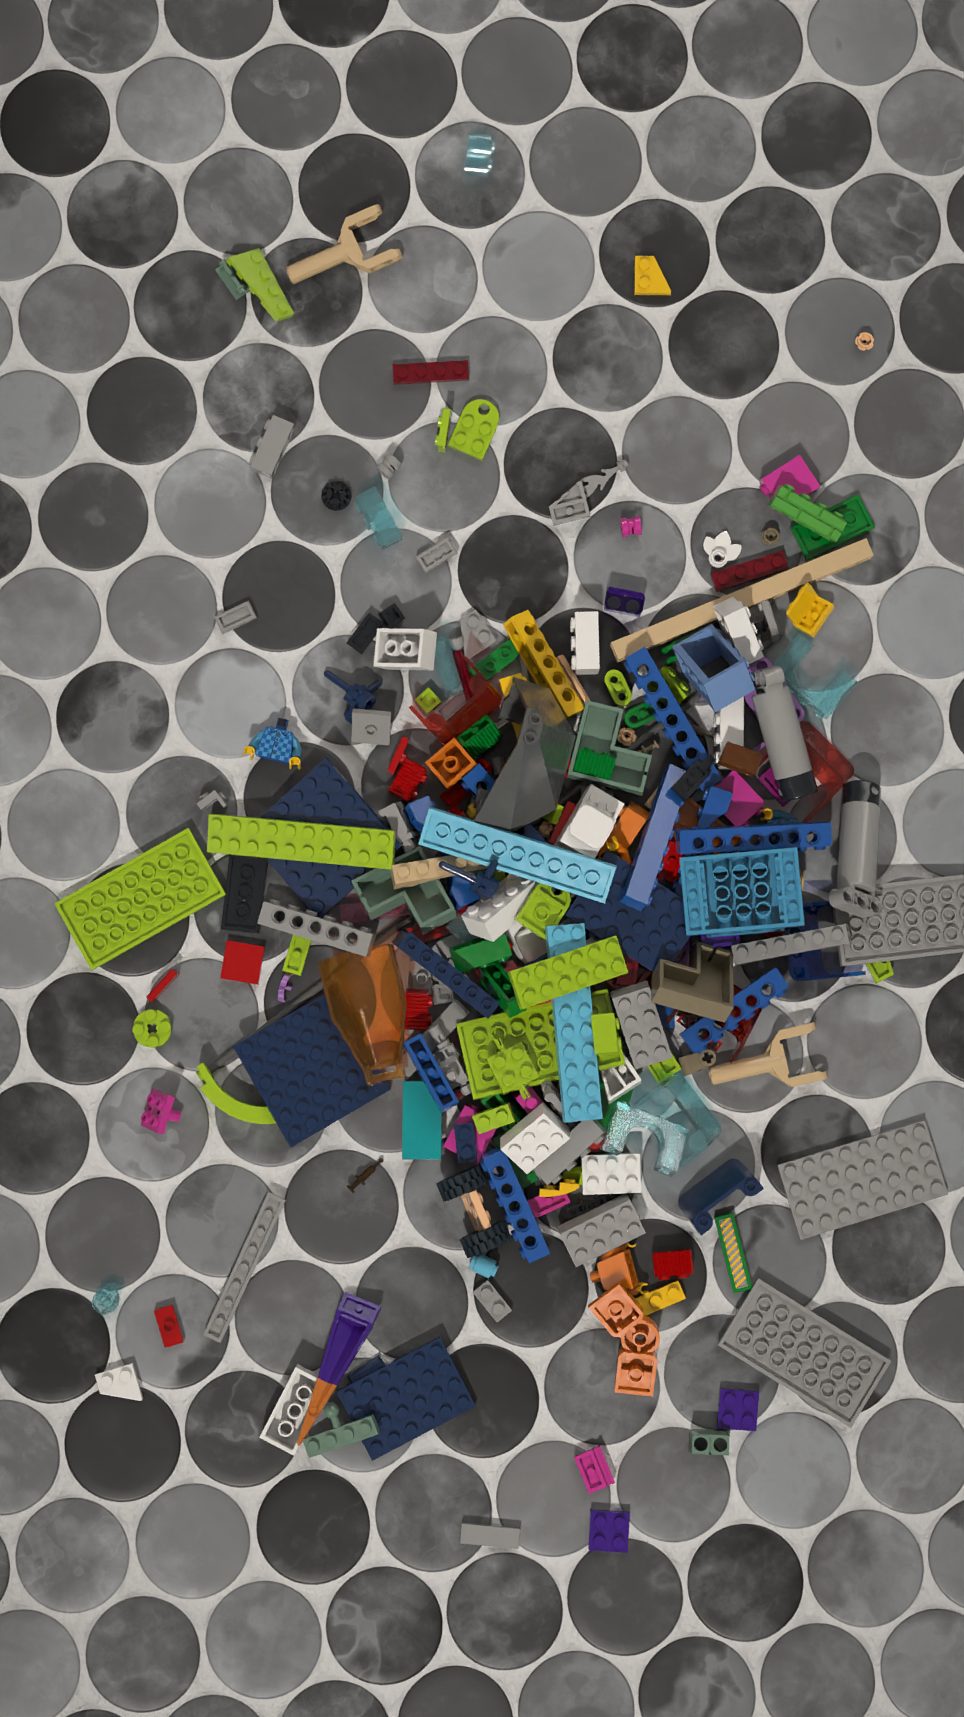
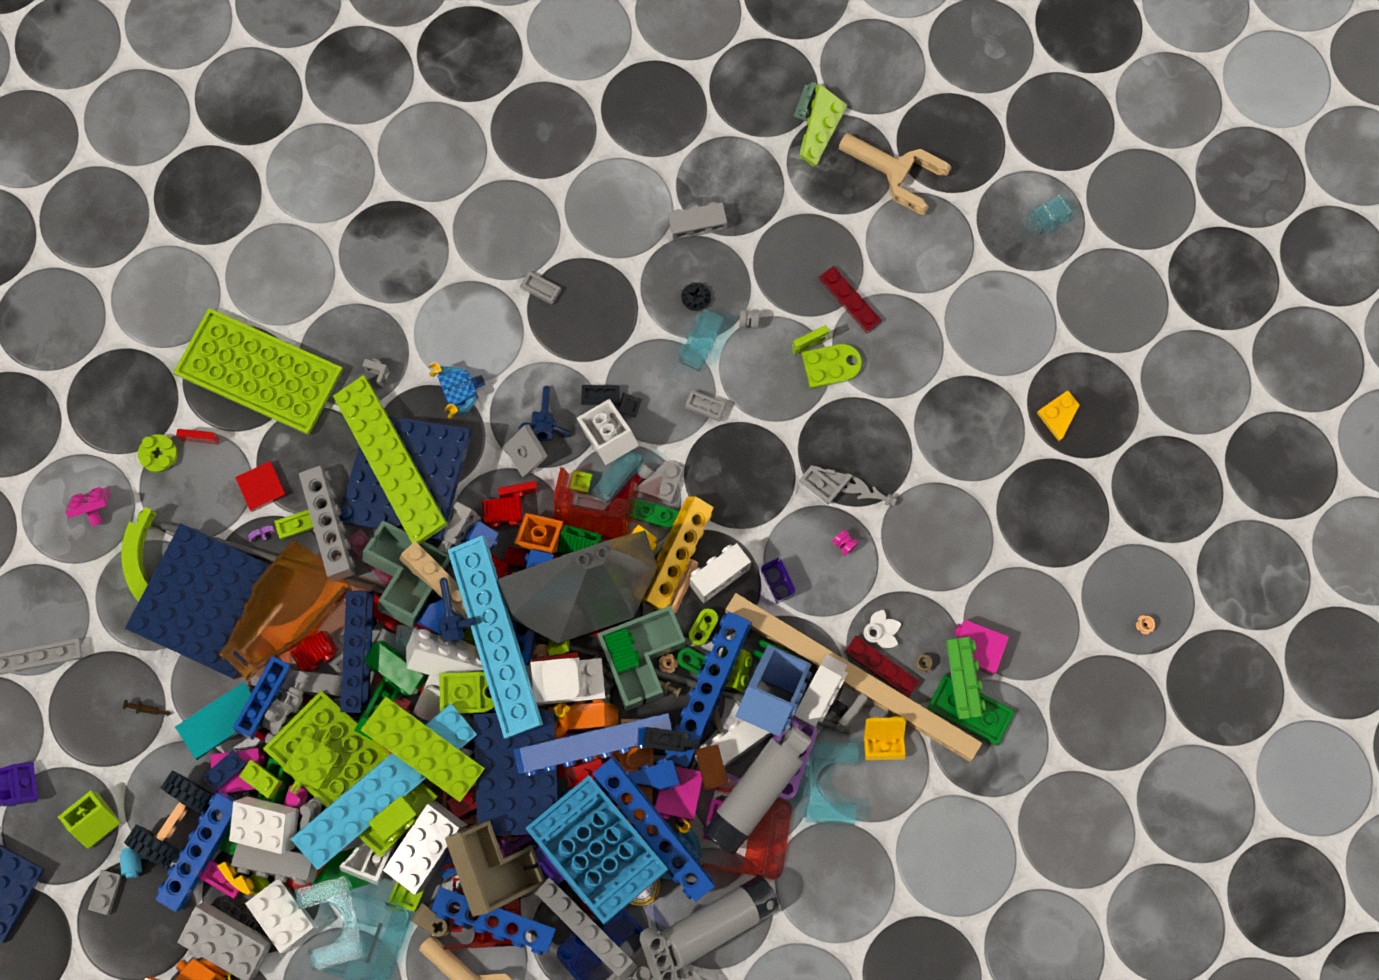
camera: 55 degrees right, 10 degrees down
(244, 893) = (318, 448): black tile -> none
(426, 1275) = (89, 819): none -> lime slope

